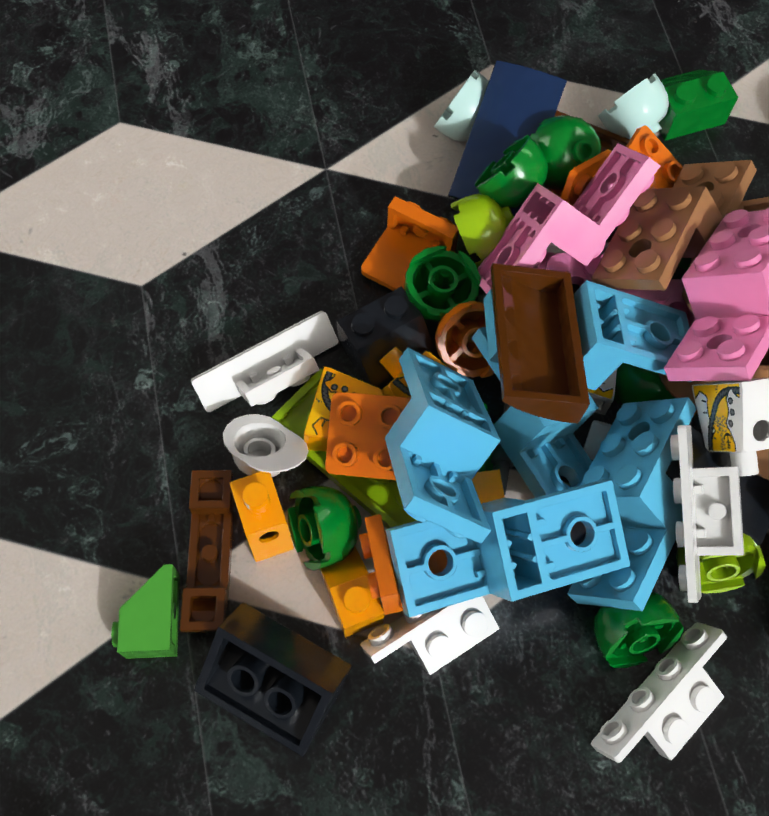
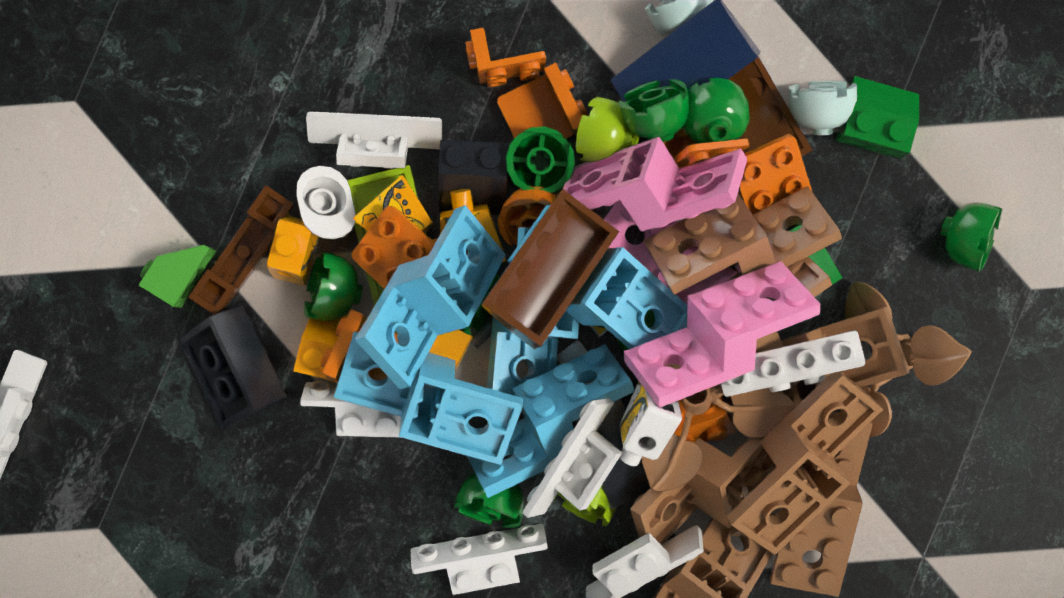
camera: 40 degrees right, 20 degrees up
(341, 239) = (497, 71): none -> orange bracket

